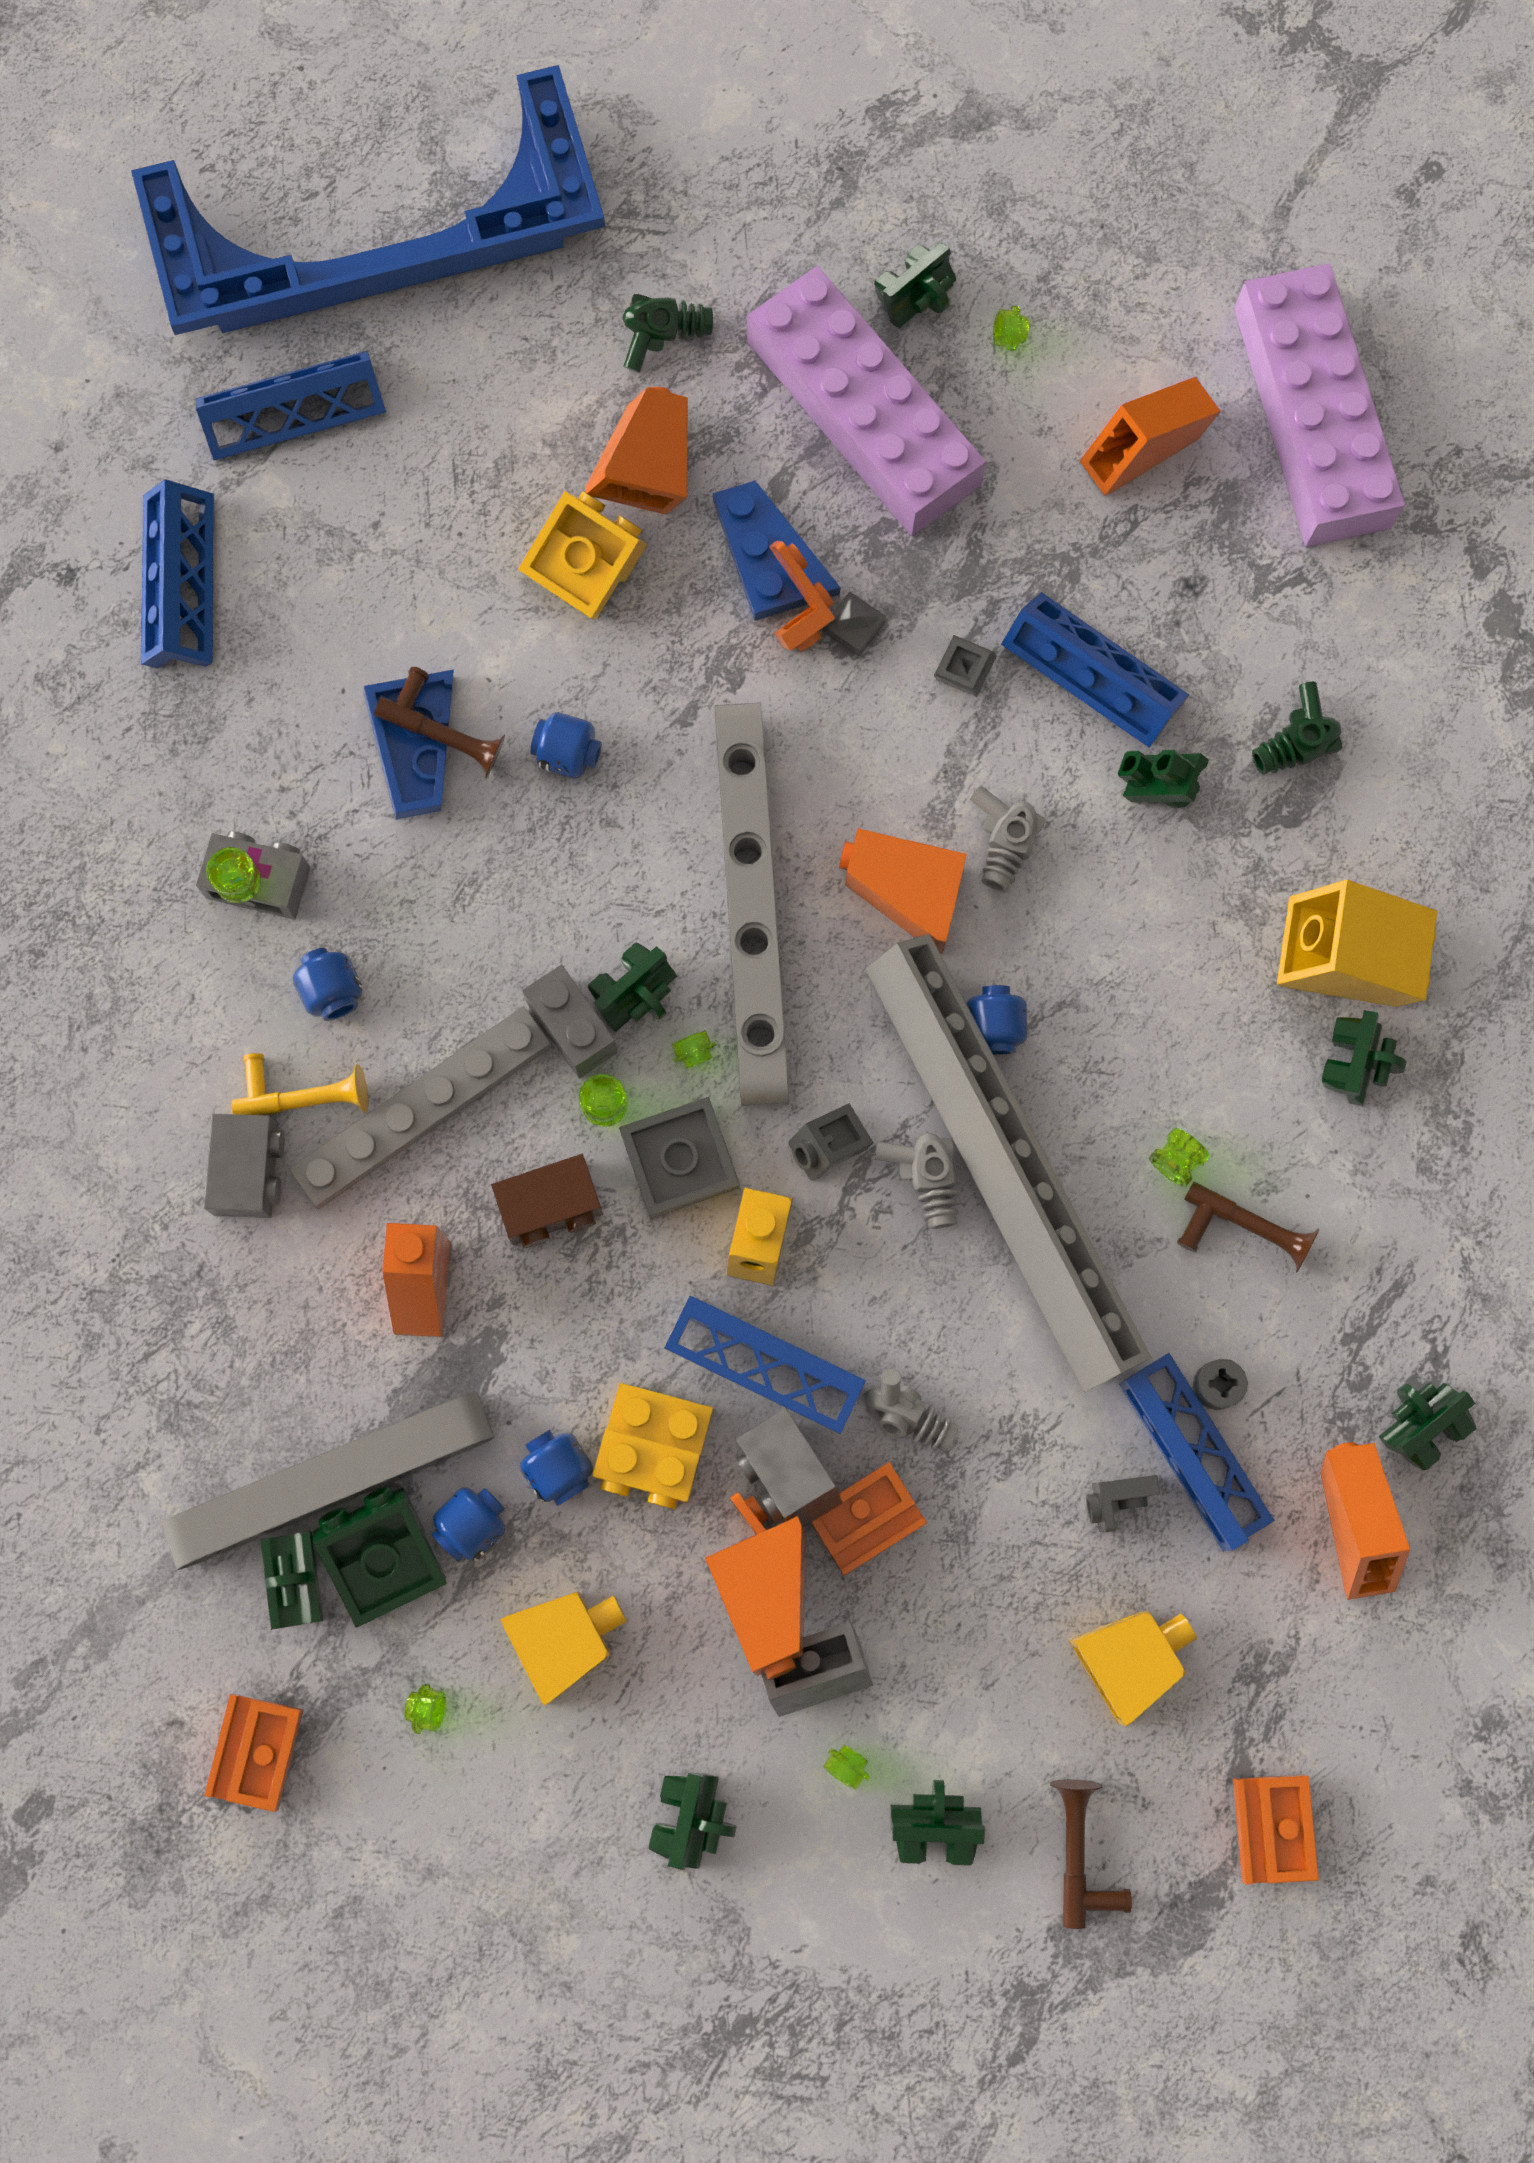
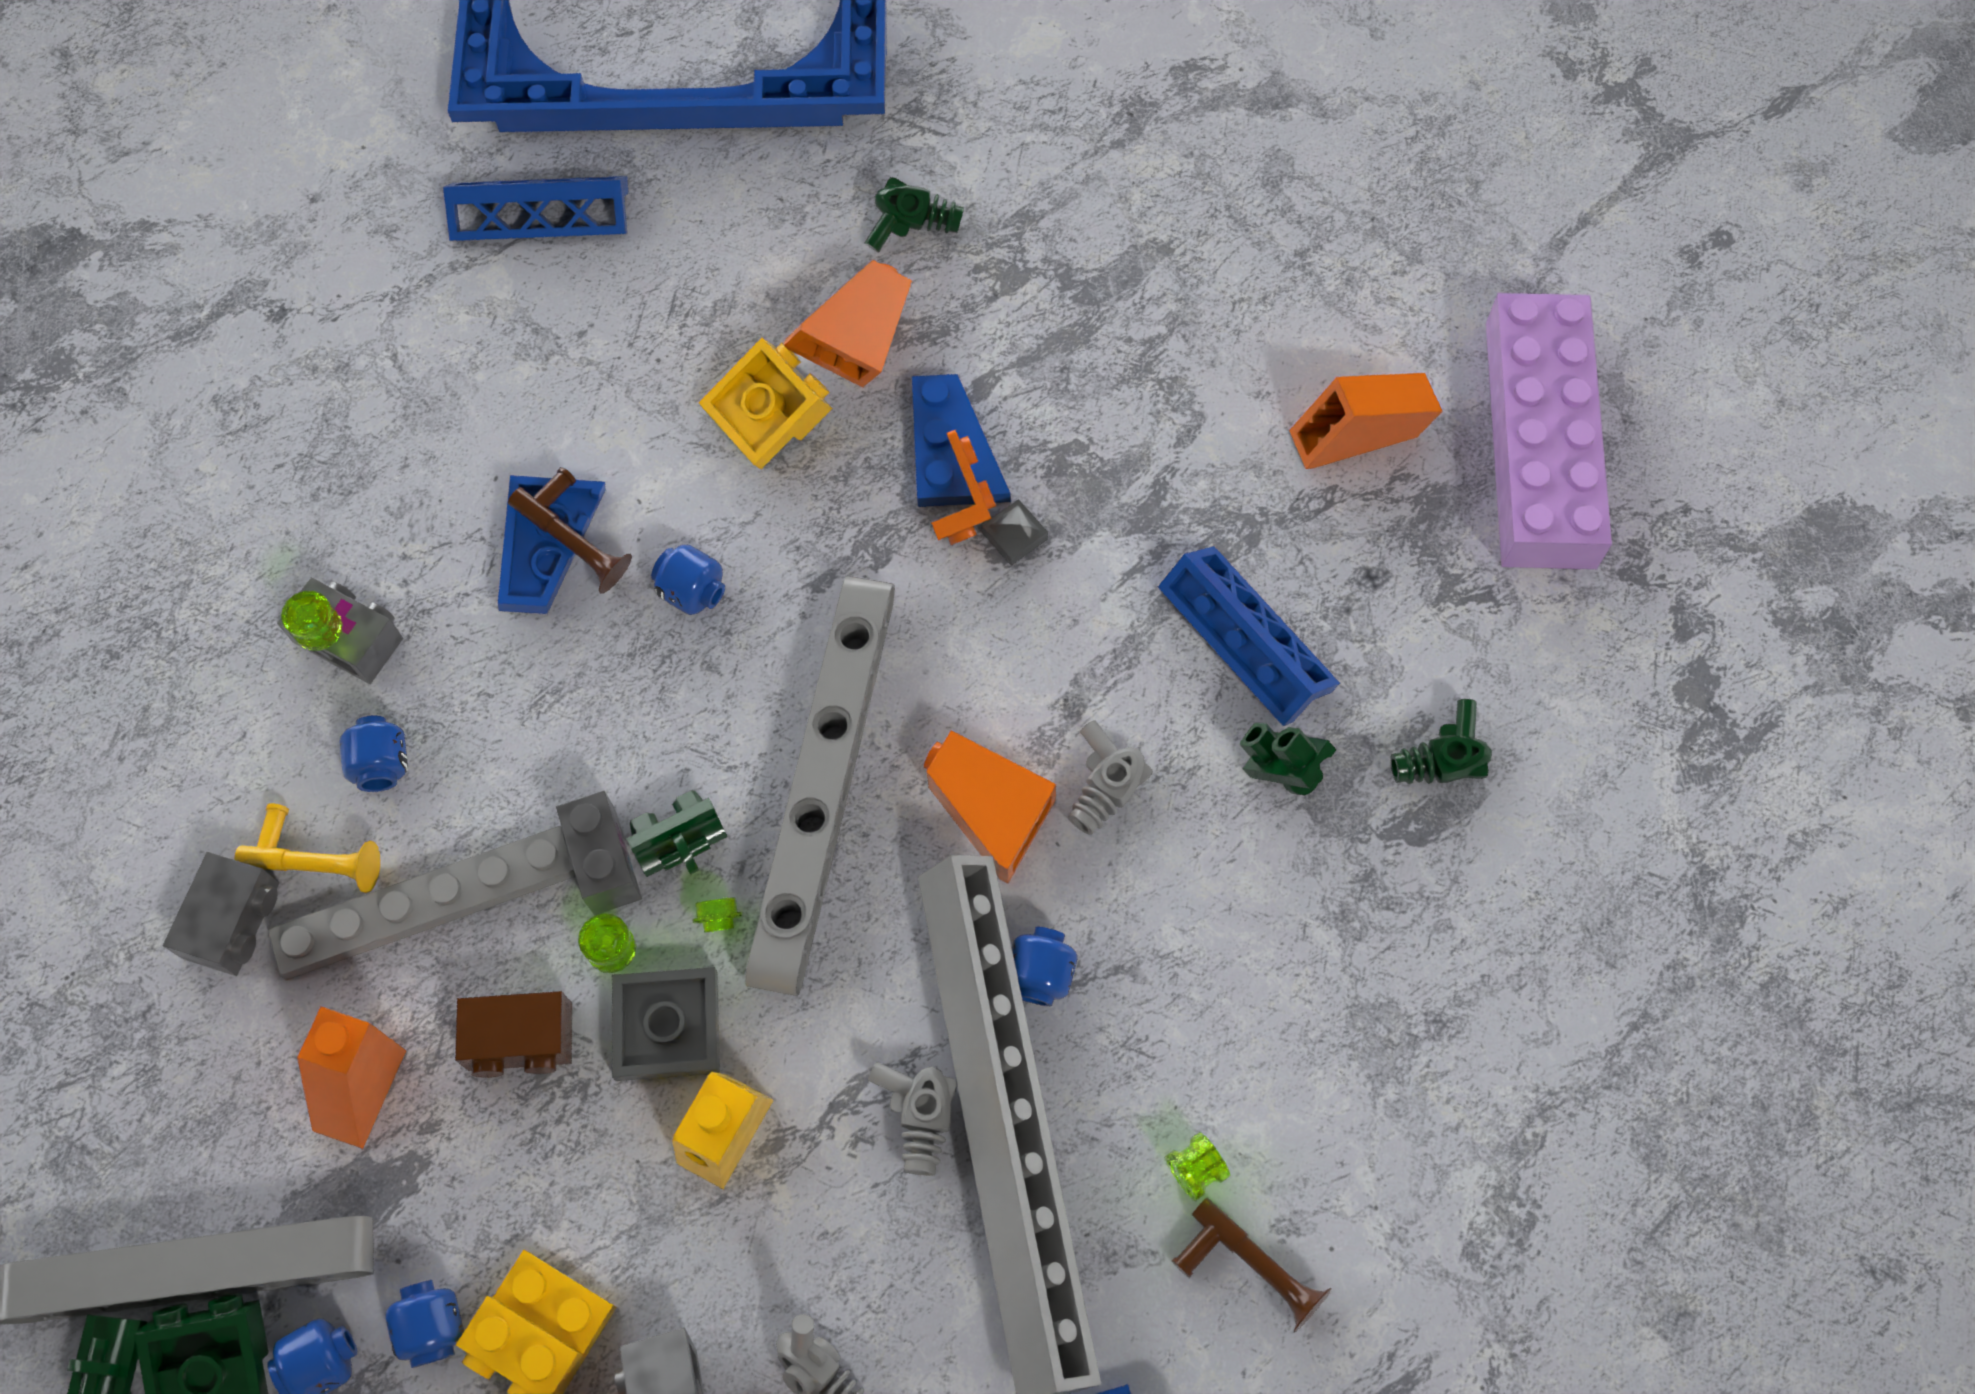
camera: 20 degrees right, 10 degrees down
(162, 579) = (360, 330): blue fence -> none
(773, 1348) = (696, 1257): blue fence -> none
(829, 1141) = (827, 1048): dark grey bracket -> none
(865, 400) = (1088, 325): lavender brick -> none
(920, 286) = (1173, 230): dark green hips -> none
(965, 665) = (1114, 598): dark grey tile -> none
(1010, 328) = (1253, 290): clear neon green plate -> none
(1358, 945) = (1454, 986): yellow slope -> none
(1362, 1037) = (1415, 1129): dark green hips -> none

